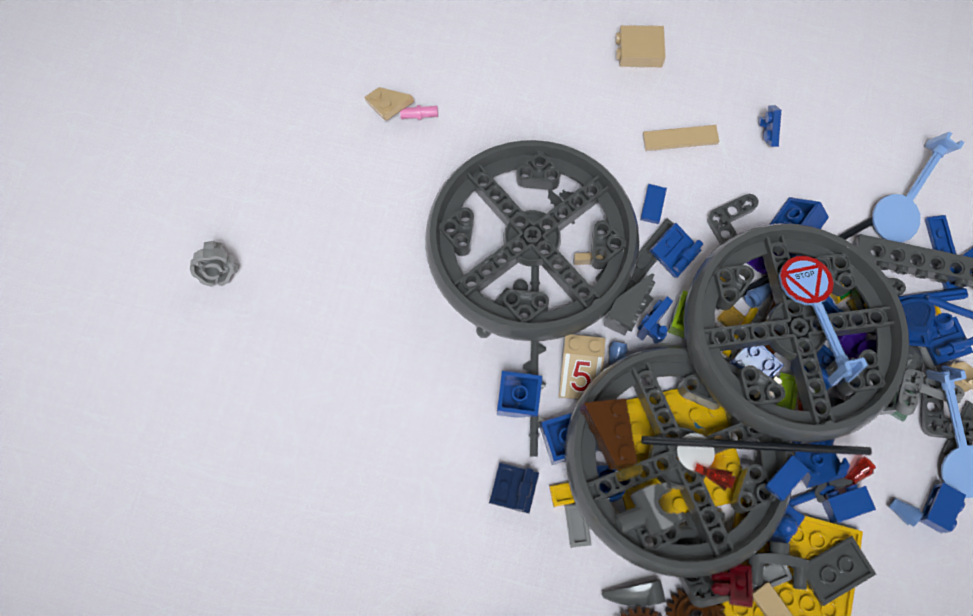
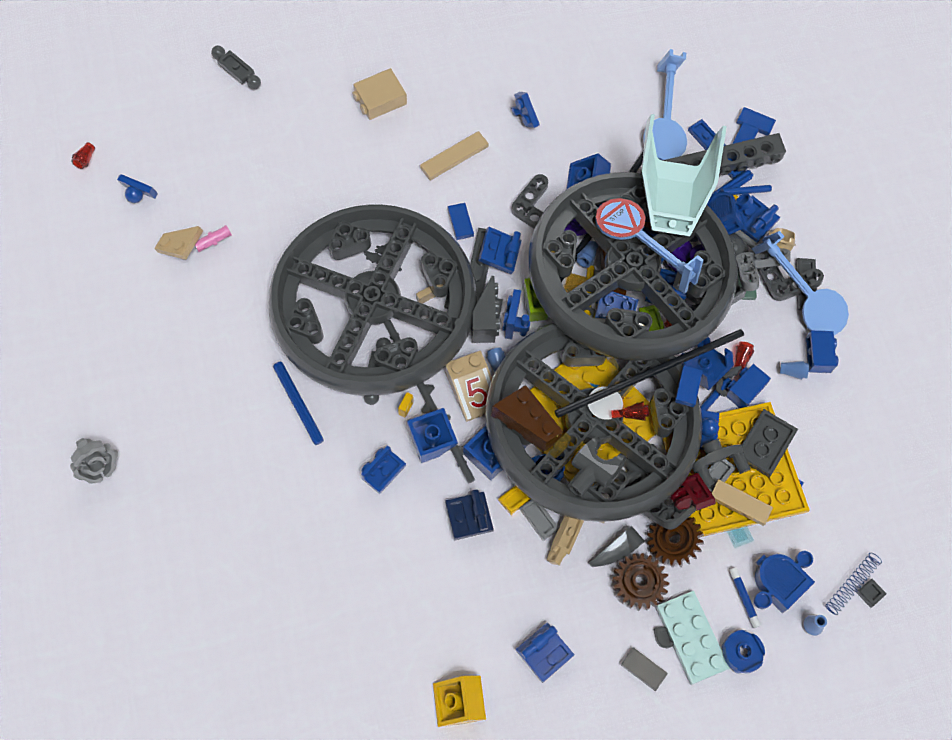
camera: 30 degrees left, 5 degrees down
(375, 35) = (136, 189): none -> blue tile
(416, 302) = (298, 403): none -> blue axle
(458, 403) = (382, 469): none -> blue bracket
(511, 353) = (406, 404): none -> yellow tile
(588, 559) = (564, 539): none -> tan hinge
(881, 281) = (676, 190): none -> light aqua windscreen

